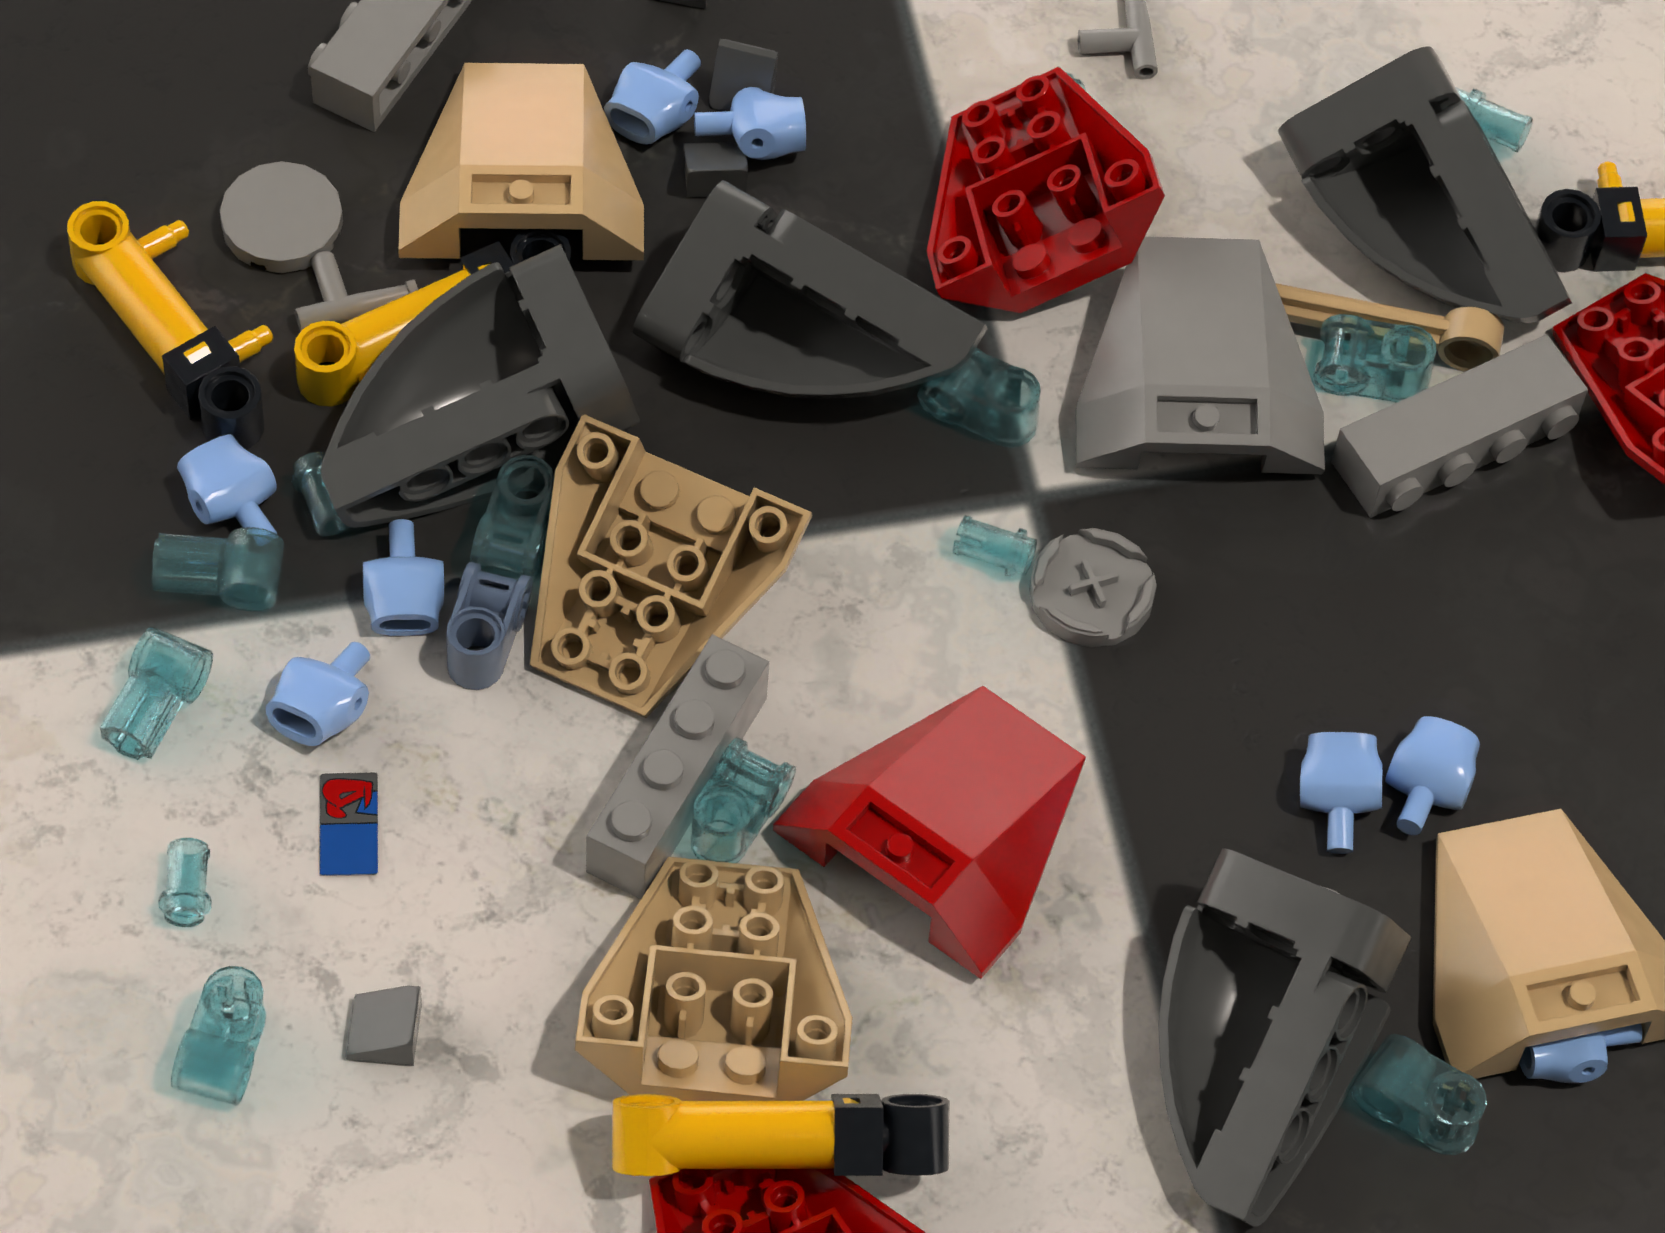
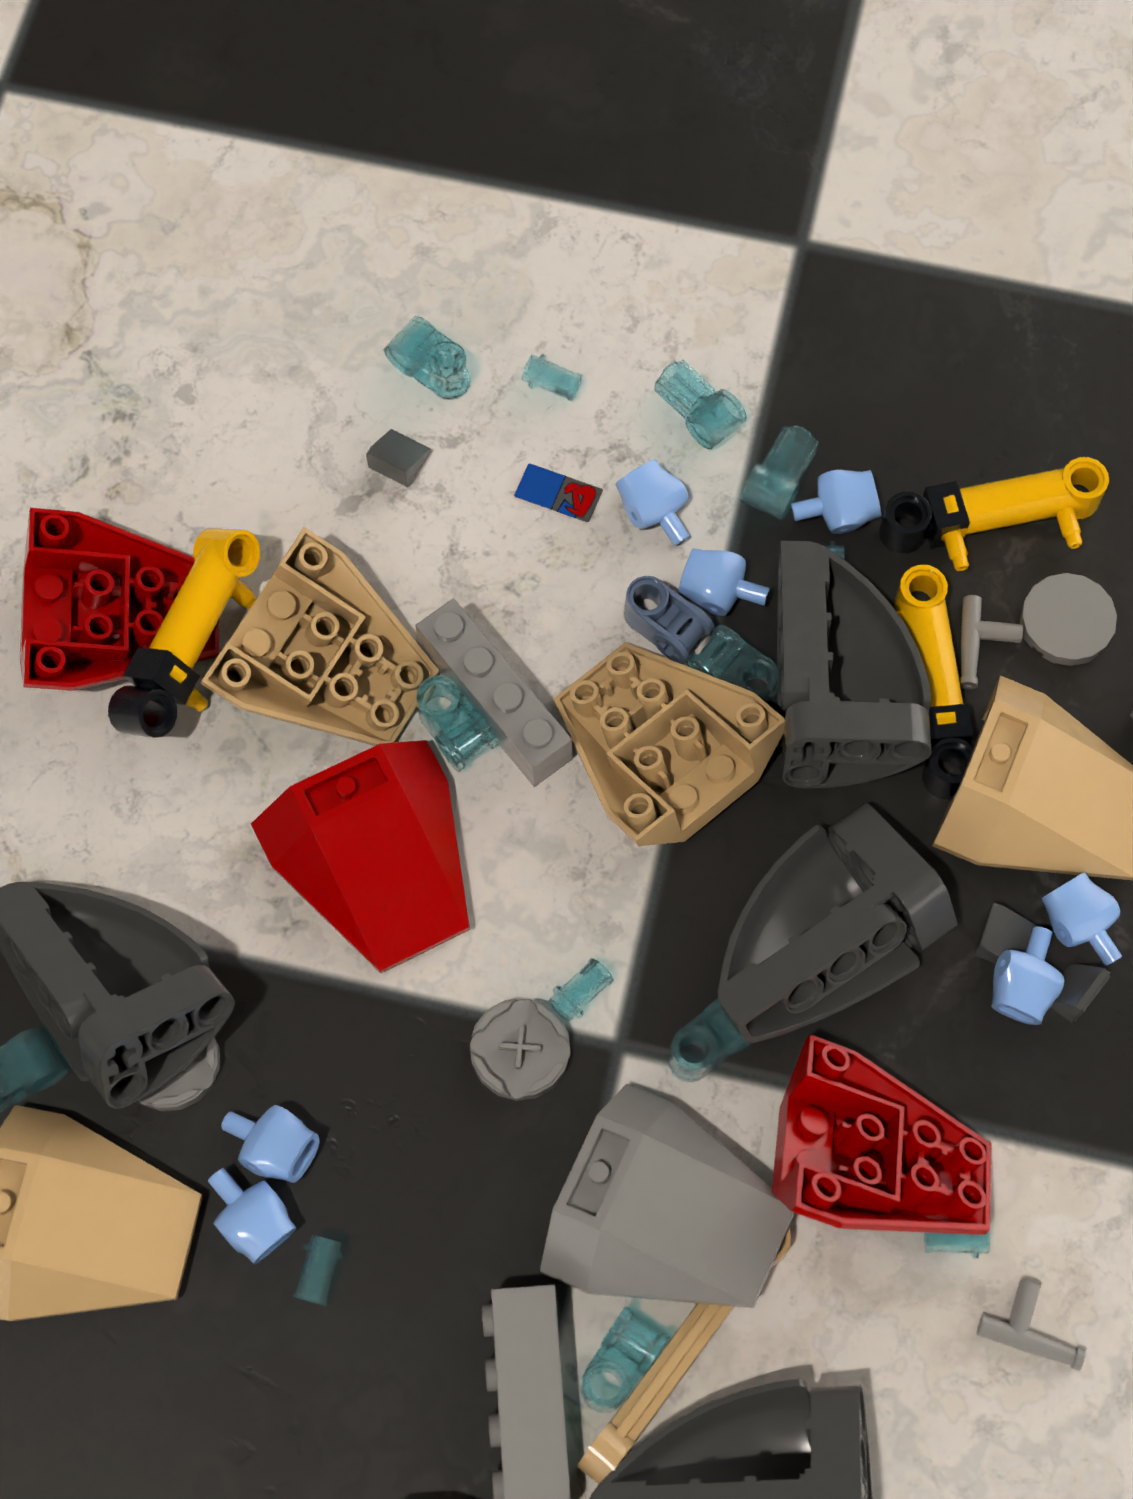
camera: 120 degrees right, 10 degrees up
(1447, 682) = (318, 1269): none -> clear light blue pin

